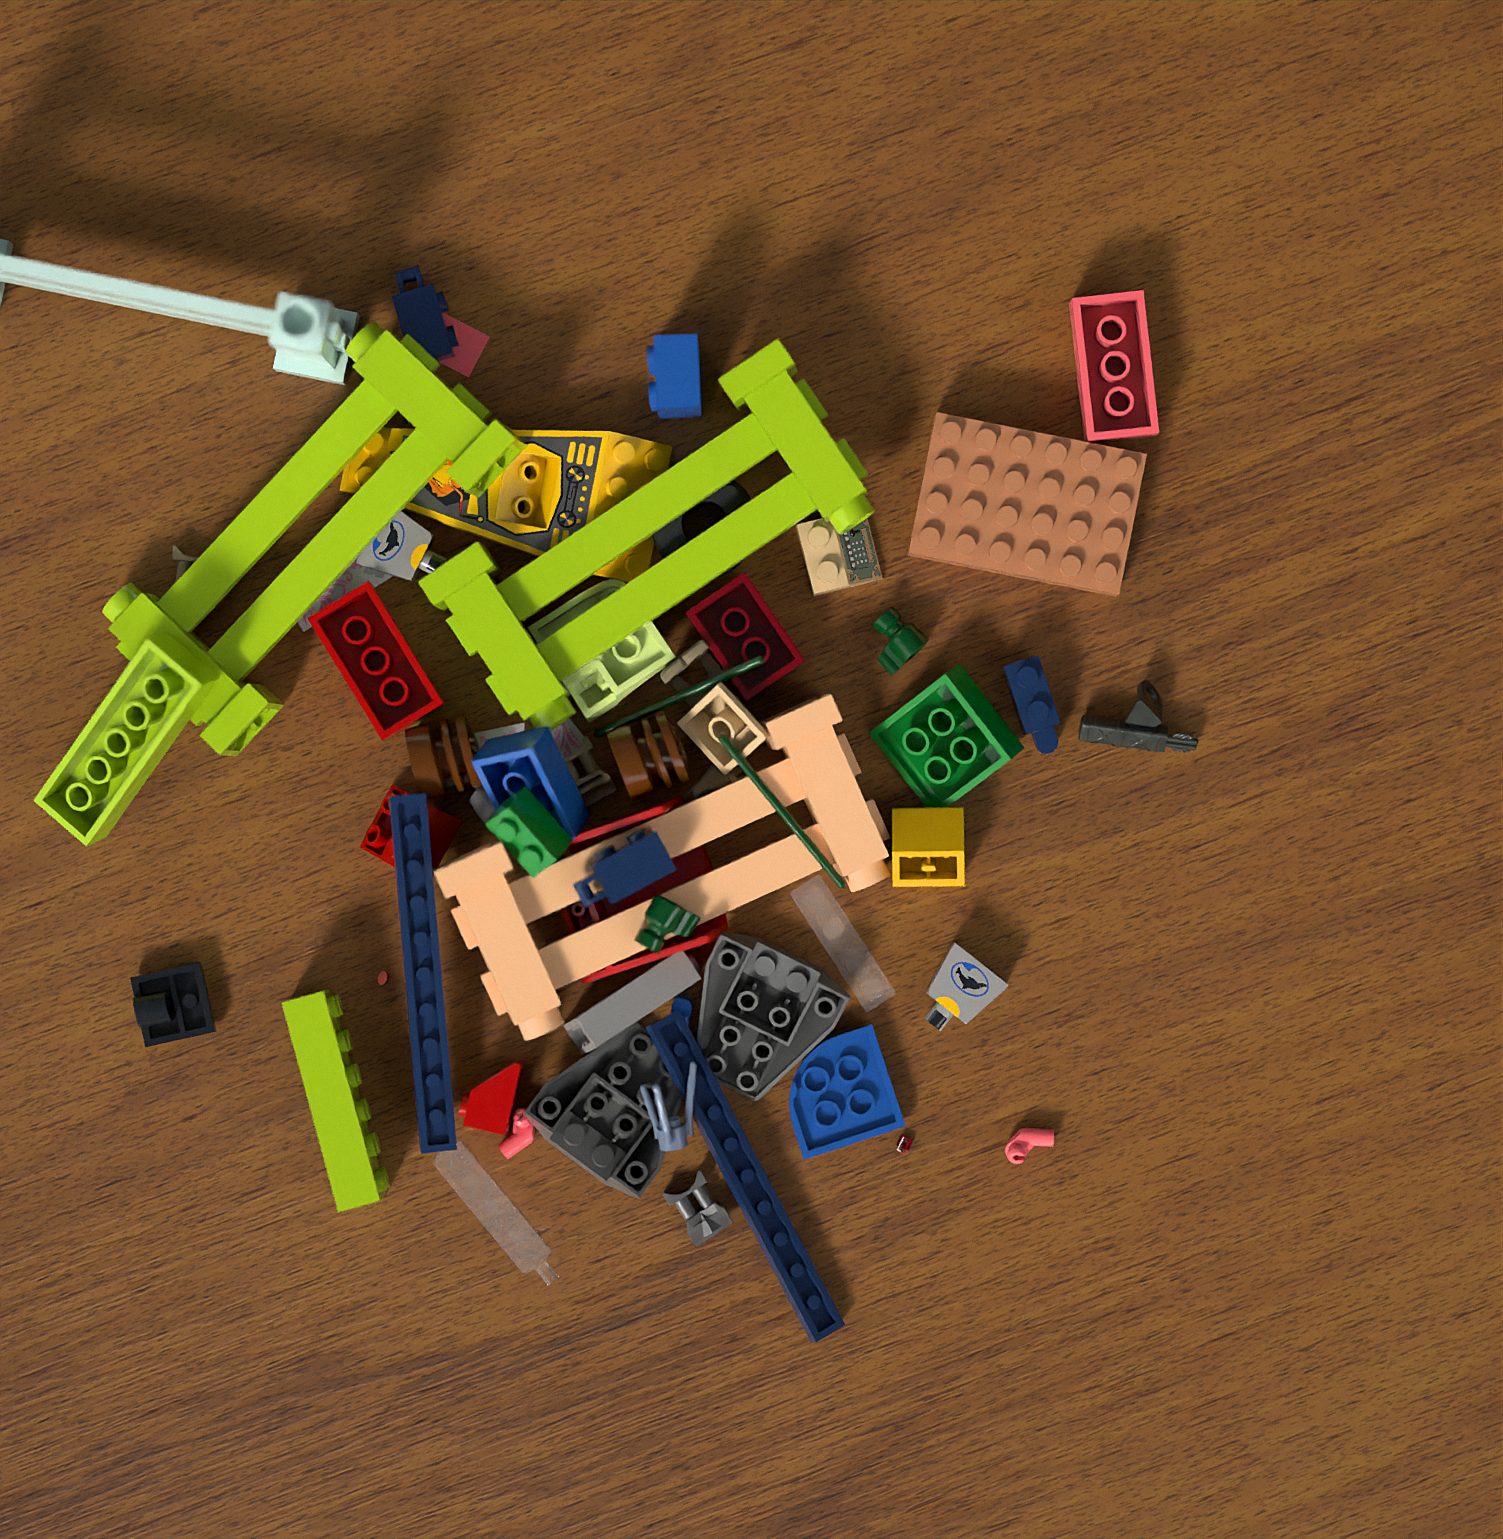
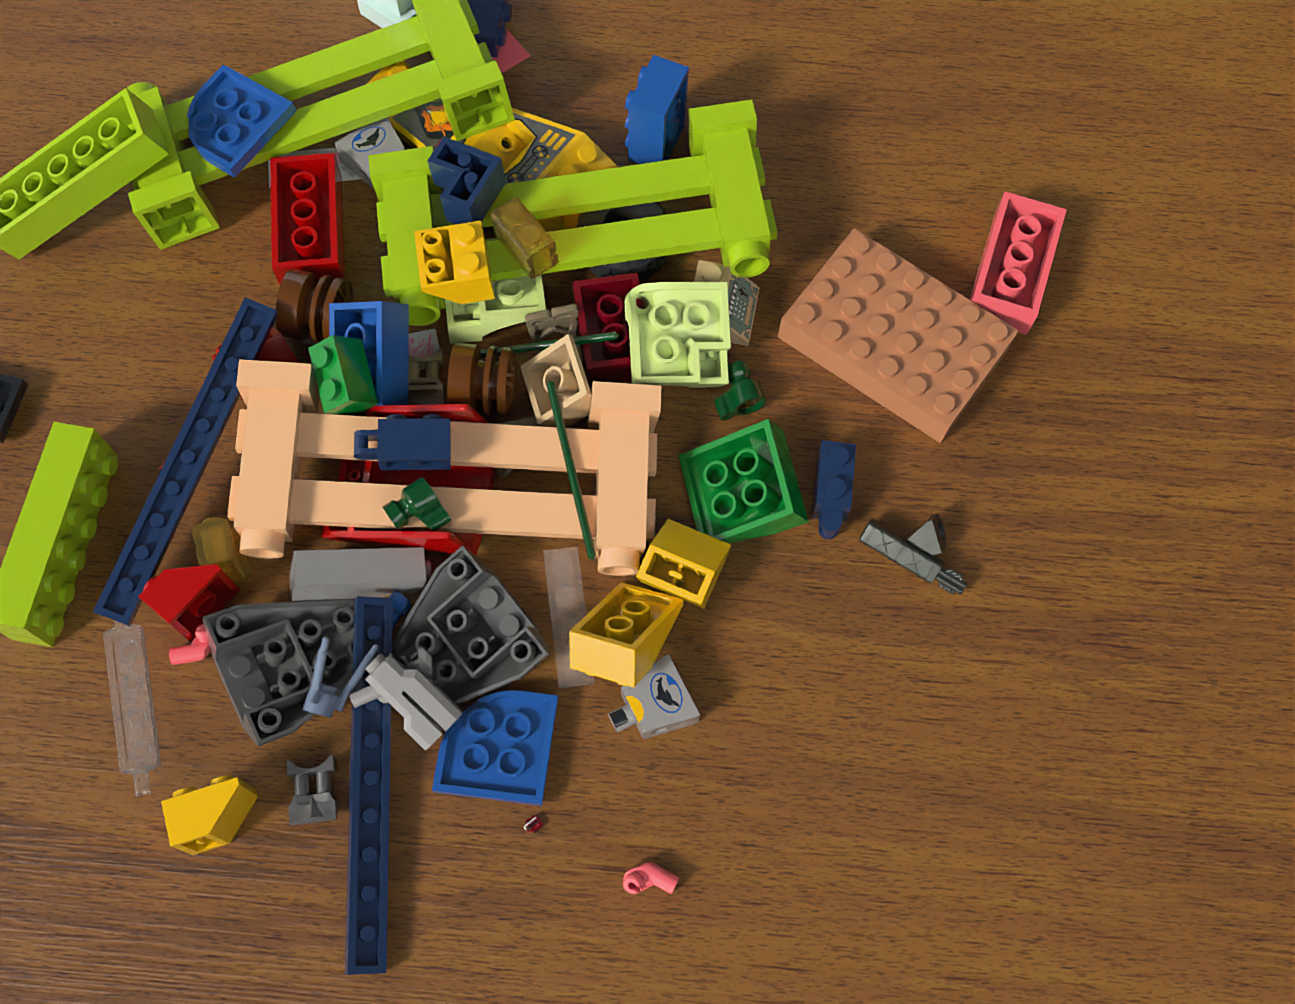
camera: 25 degrees right, 20 degrees down
(249, 596) = (234, 119): none -> blue plate
(499, 1040) = (220, 545): none -> clear yellow brick
(542, 561) = (469, 179): none -> dark blue brick
(571, 665) = (455, 262): none -> yellow slope
(625, 604) = (524, 238): none -> clear yellow brick
(625, 1277) = (209, 815): none -> yellow slope
(747, 1090) = (412, 694): none -> light grey piece
(818, 624) = (679, 334): none -> yellowish green slope
(906, 942) = (623, 634): none -> yellow slope

